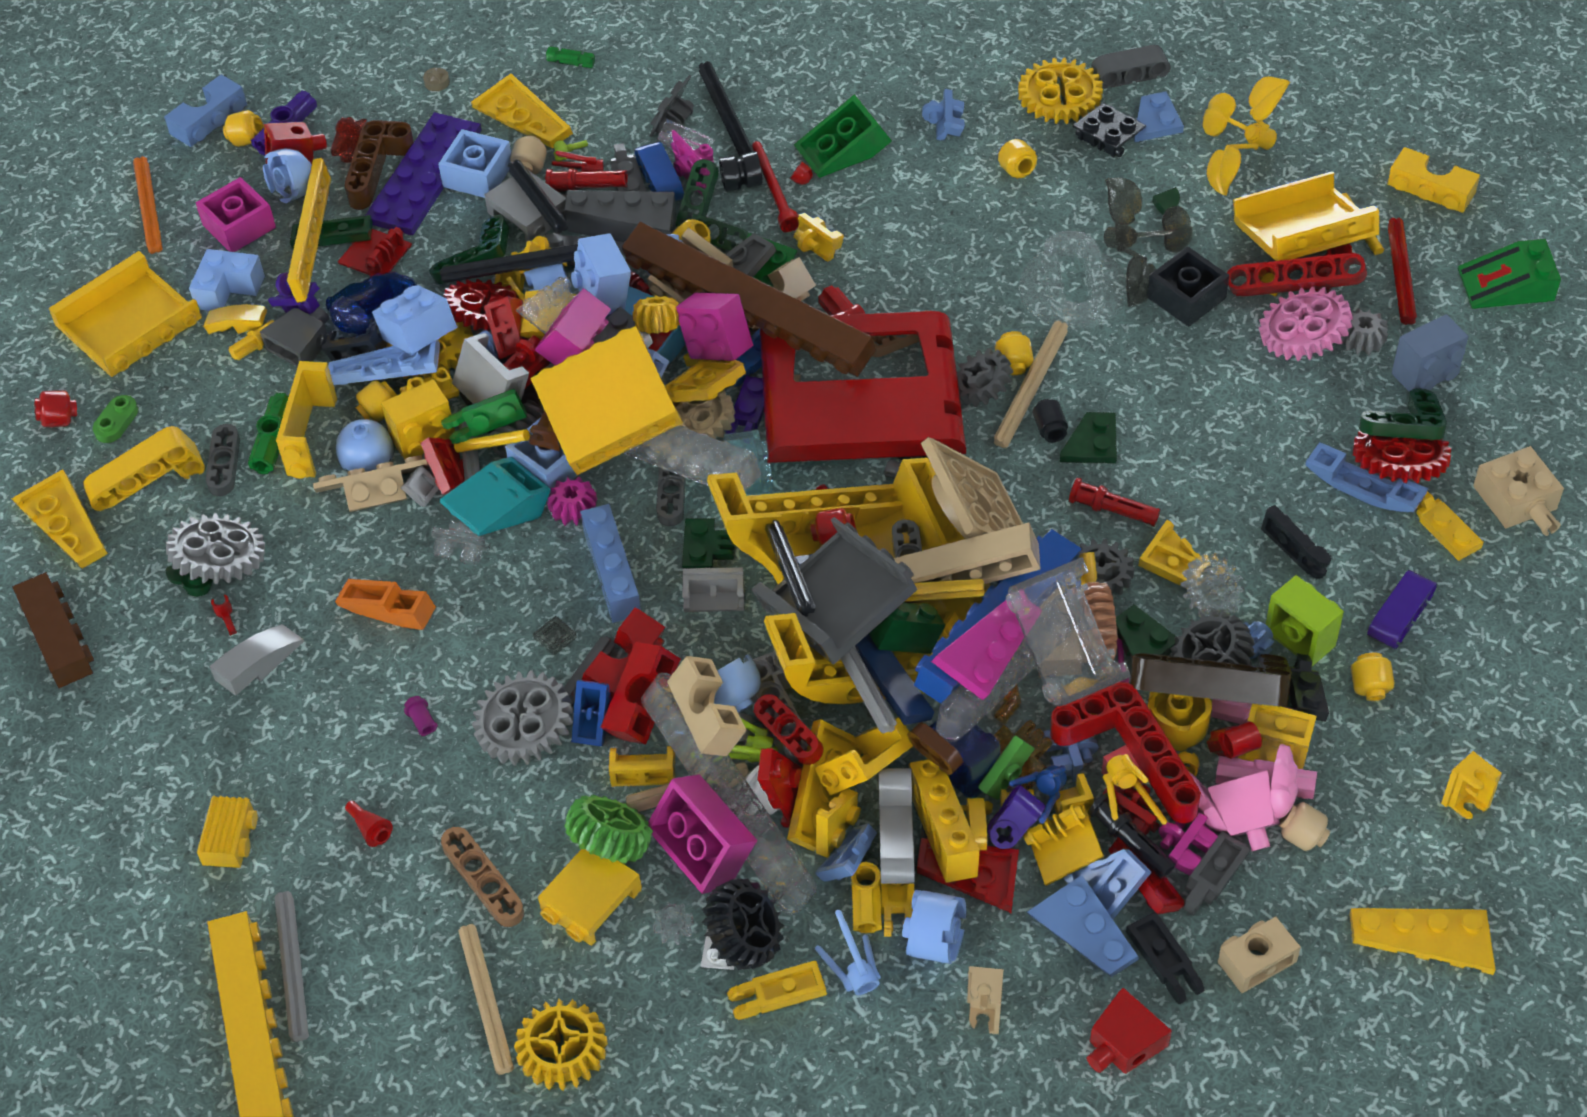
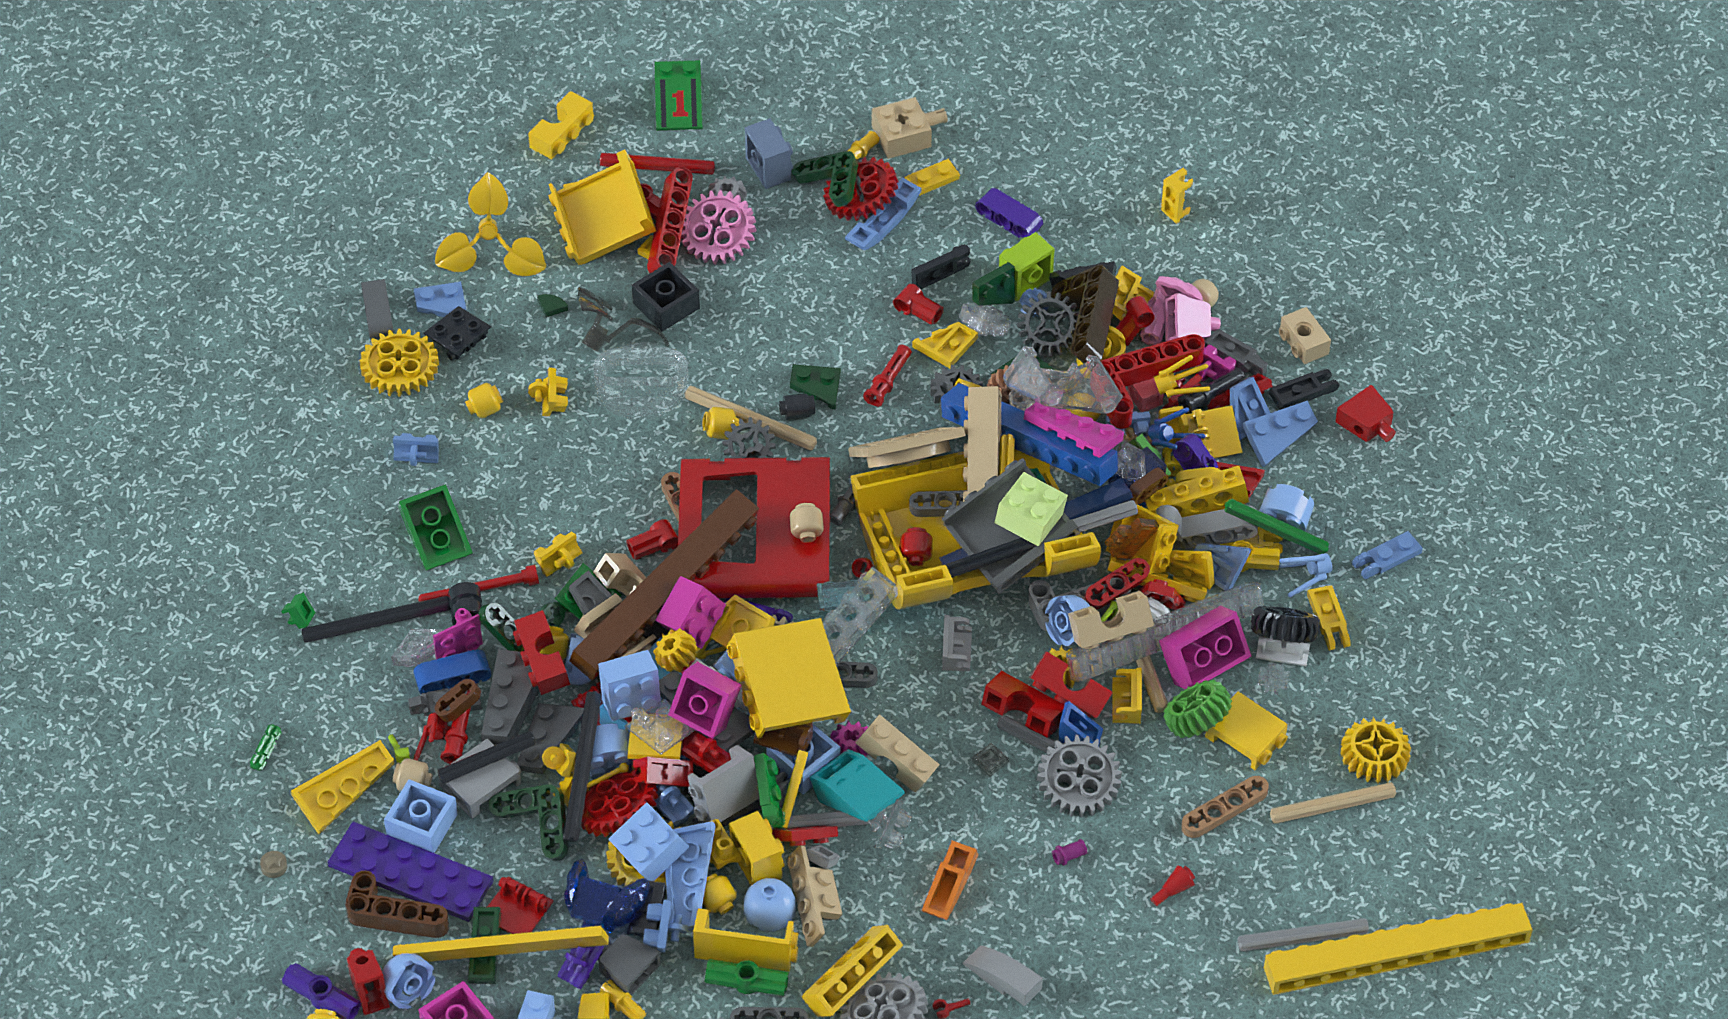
camera: 90 degrees left, 0 degrees up
(227, 832) = (1181, 984): yellow brick -> none
(266, 516) = (852, 970): none -> yellow brick
(326, 348) = (662, 913): none -> medium blue hips
(346, 138) = (358, 929): clear red hips -> none
(530, 548) = (912, 762): none -> tan arch
(605, 165) = (457, 700): none -> reddish brown beam
(610, 562) = (930, 710): medium blue brick -> none
(673, 108) = (373, 654): dark grey hinge -> none
(674, 204) = (547, 670): none -> red arch
(705, 544) = (903, 653): dark green hinge -> none
(727, 55) = (299, 610): none -> green tile
(802, 174) = (466, 561): red hinge -> none
(835, 588) = (1031, 509): none -> yellowish green brick
(843, 412) = (806, 522): none -> tan head
(856, 735) = (1130, 539): none -> clear orange hinge
(891, 1067) = (1388, 555): none -> medium blue hinge
(893, 905) = (1276, 526): none -> green axle
(985, 995) = (1347, 484): tan hinge -> none
(1037, 205) = (546, 392): none -> yellow hips
(1230, 522) = (913, 301): none -> red piece
(1250, 581) = (995, 287): none -> dark green wing
(1372, 676) = (1071, 239): yellow head -> none
(1438, 934) = (1285, 245): yellow wing -> none
(1472, 451) = (861, 147): none -> yellow pin

